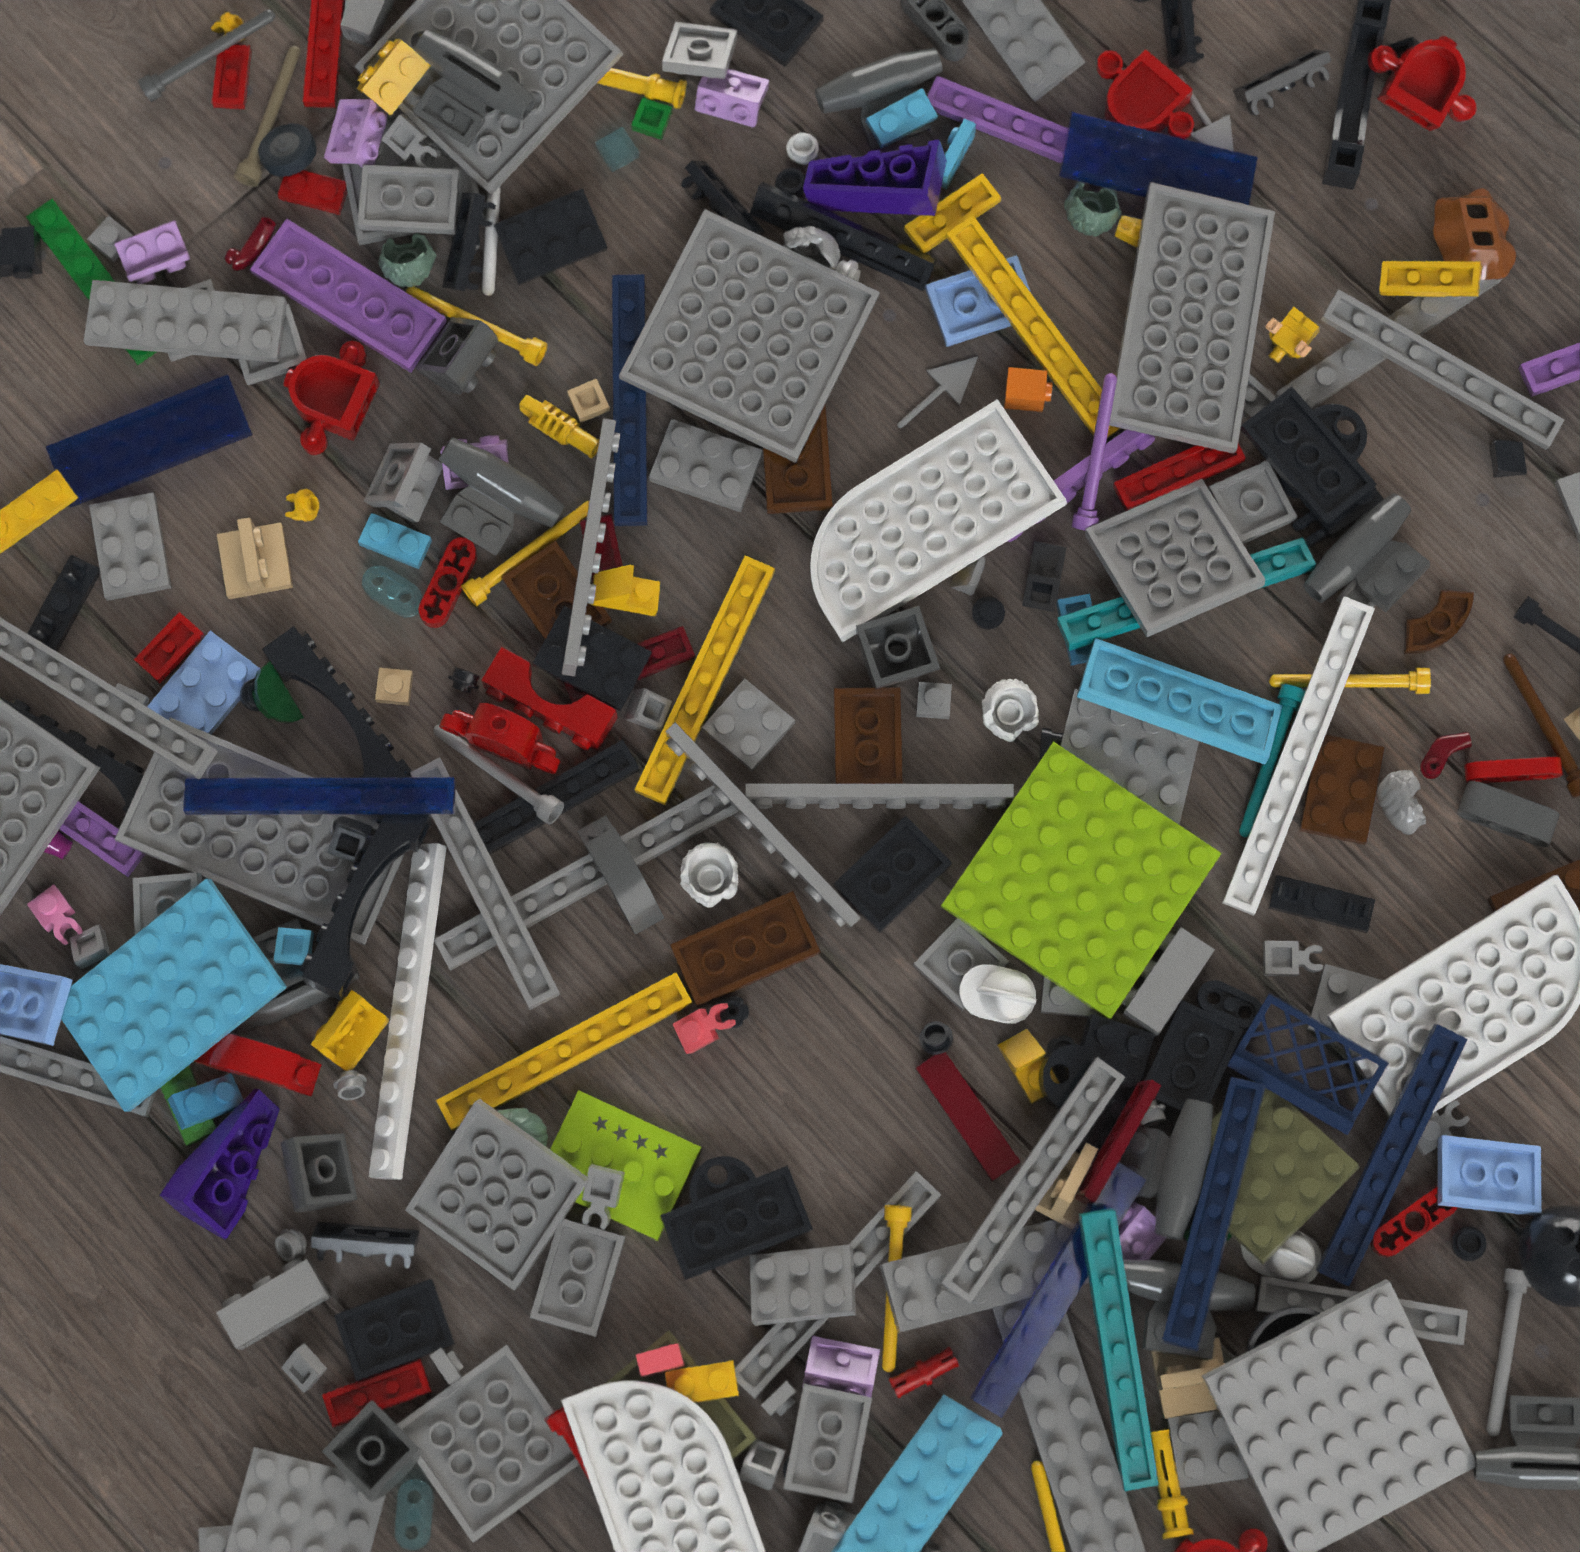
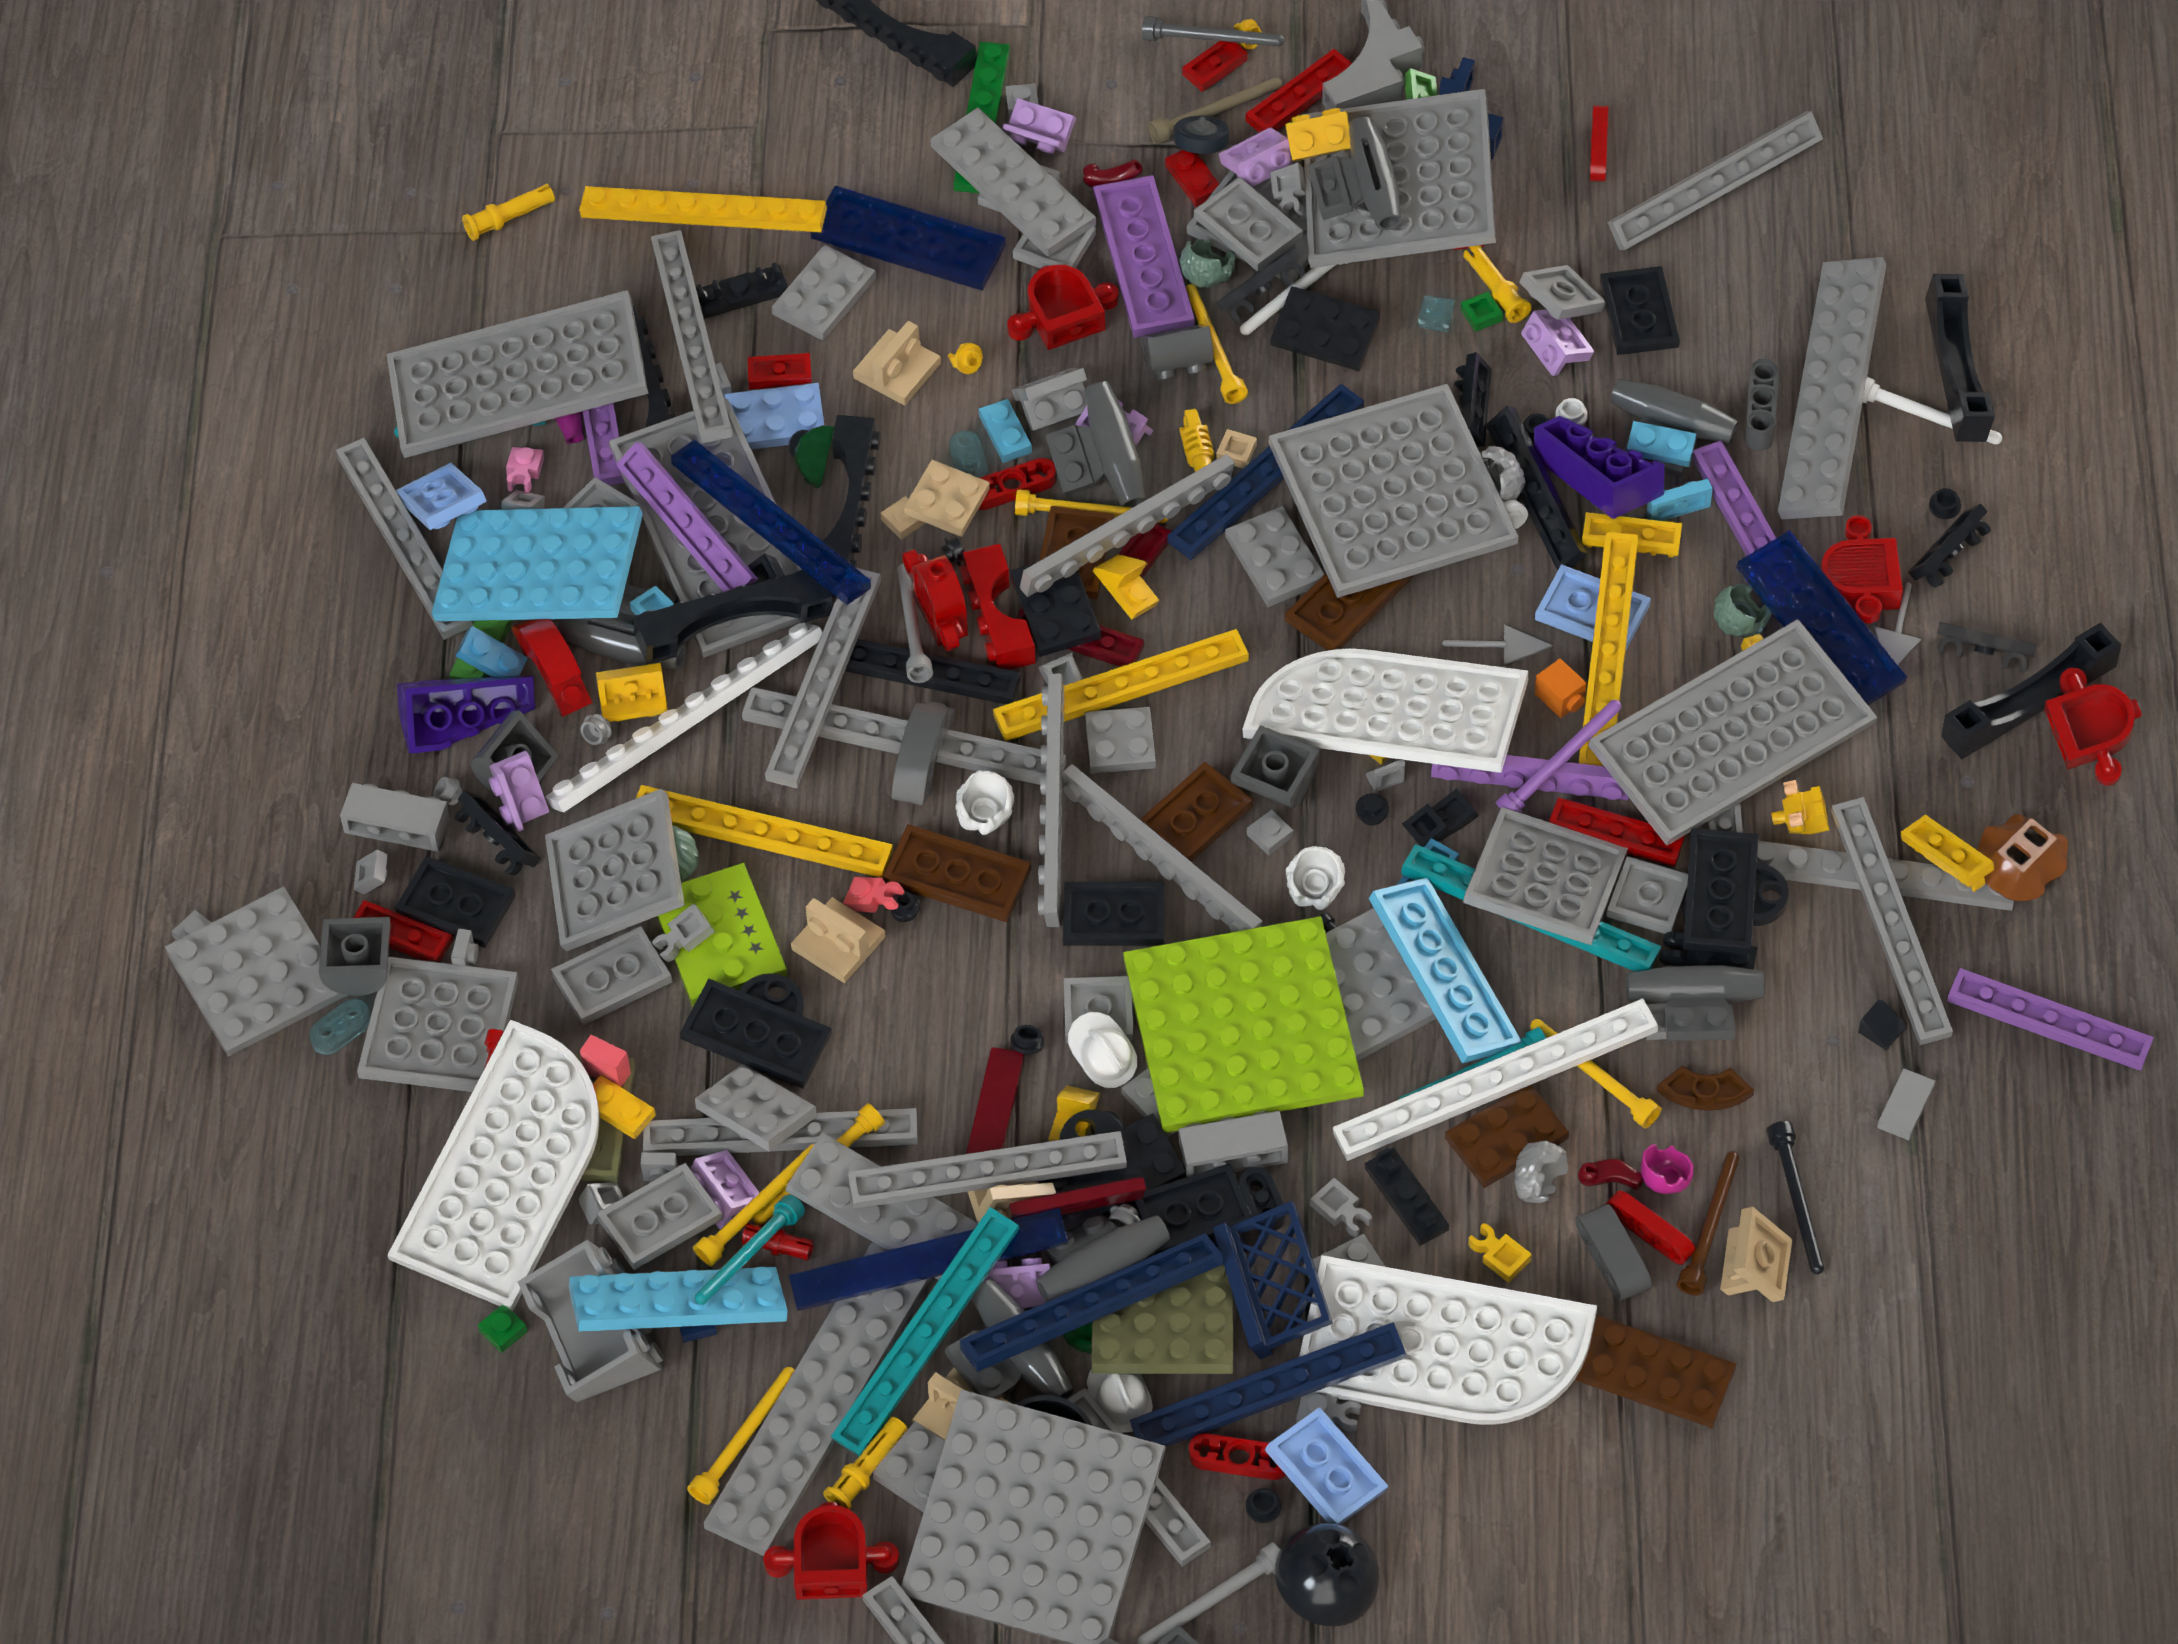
camera: 45 degrees right, 20 degrees down
(248, 852) = (684, 519): none -> medium lavender plate
(351, 1196) = (519, 790): none -> lavender bracket
(417, 643) = (946, 498): none -> tan plate
(711, 1085) = (837, 938): none -> tan bracket
(886, 1426) = (710, 1248): none -> yellow piece
(911, 1346) = (786, 1212): none -> teal piece
(1437, 888) = (1502, 1256): none -> yellow plate
(1482, 714) = (1666, 1170): none -> dark pink hair

